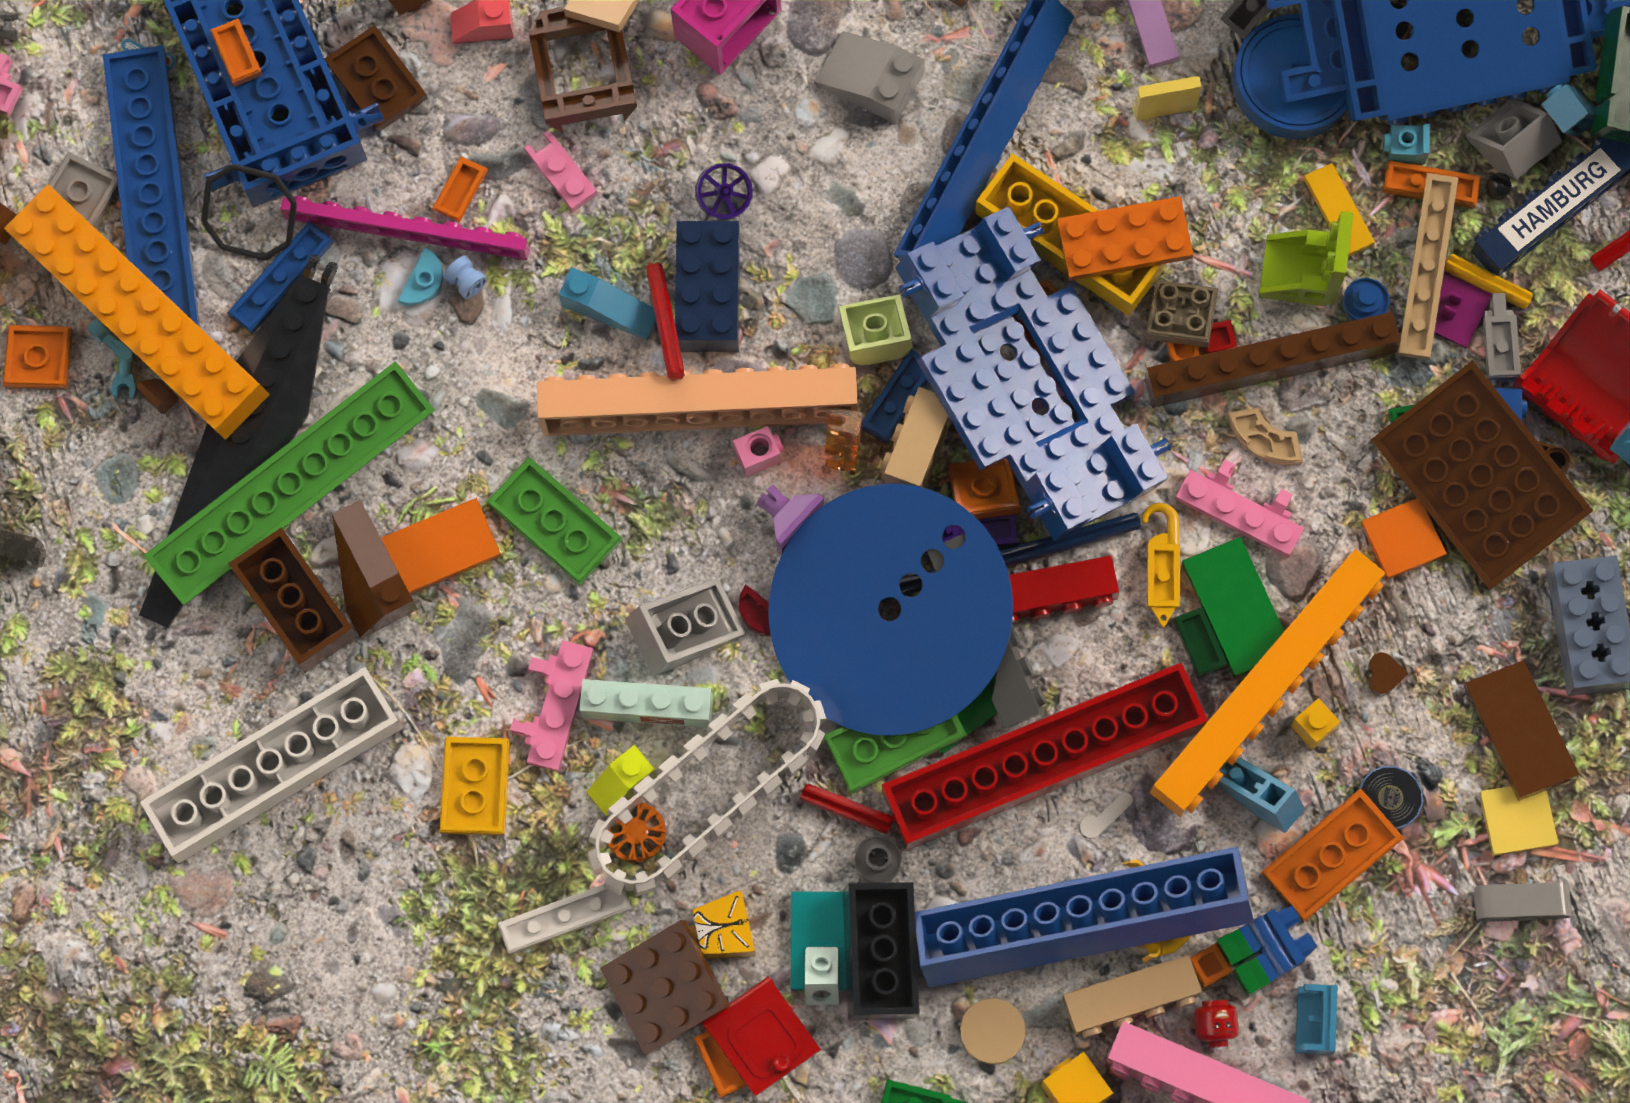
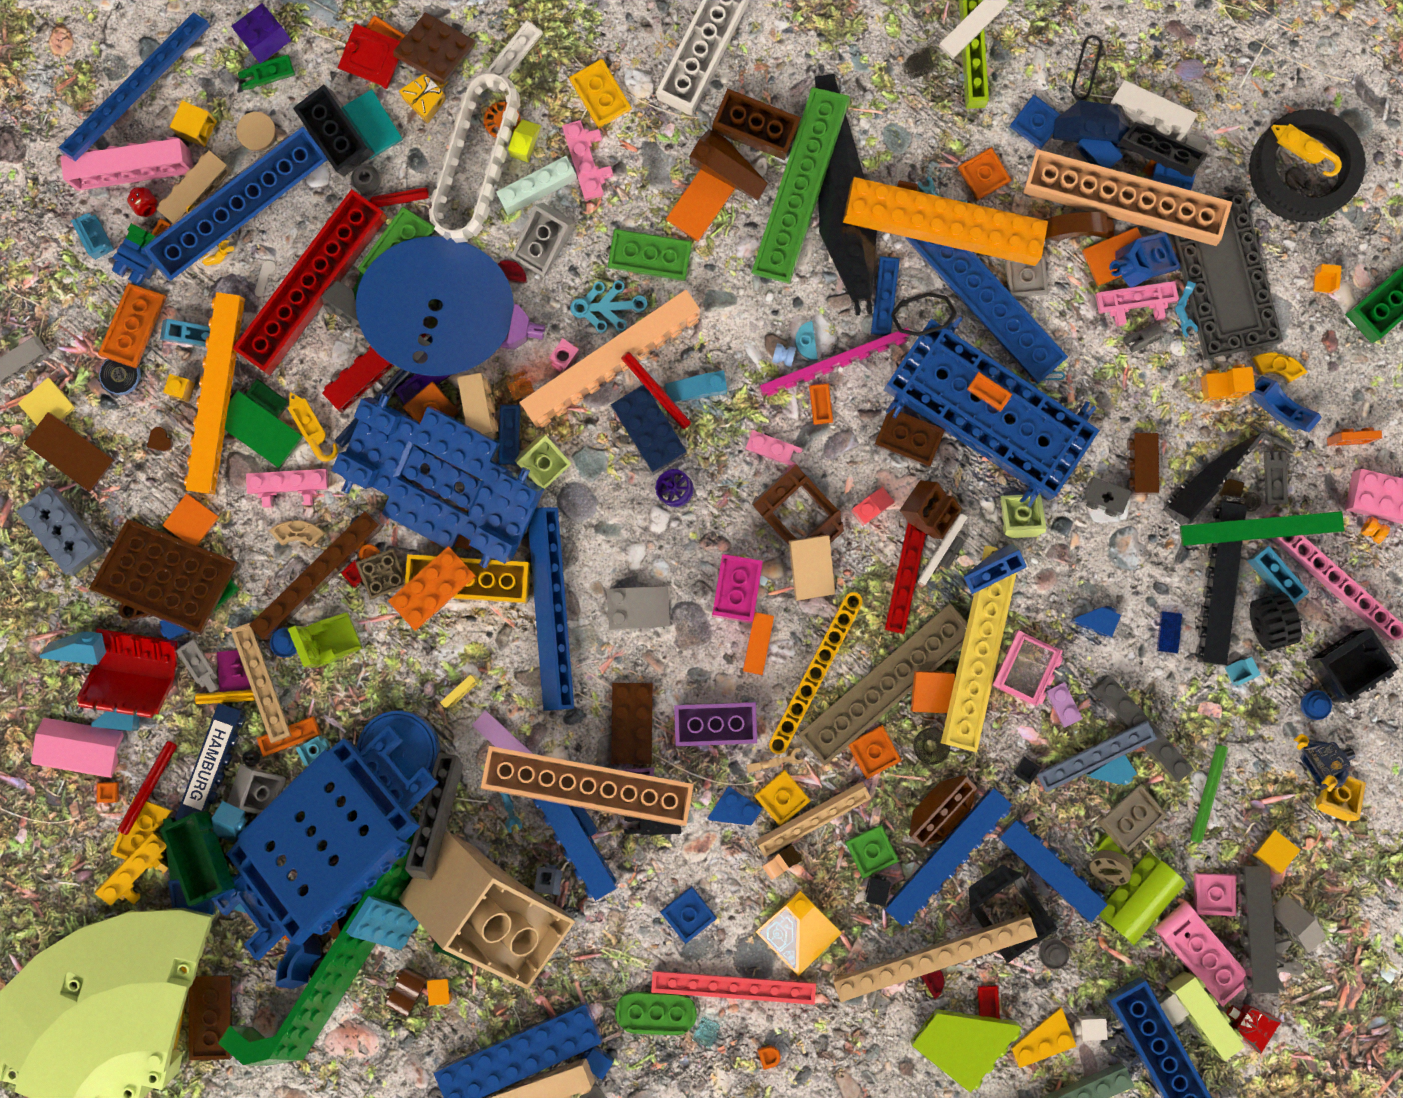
camera: 145 degrees right, 10 degrees up
(659, 487) = (605, 306): none -> medium azure plant
(821, 975) = (360, 105): light aqua bracket -> none
(1333, 198) = (331, 689): yellow tile -> none

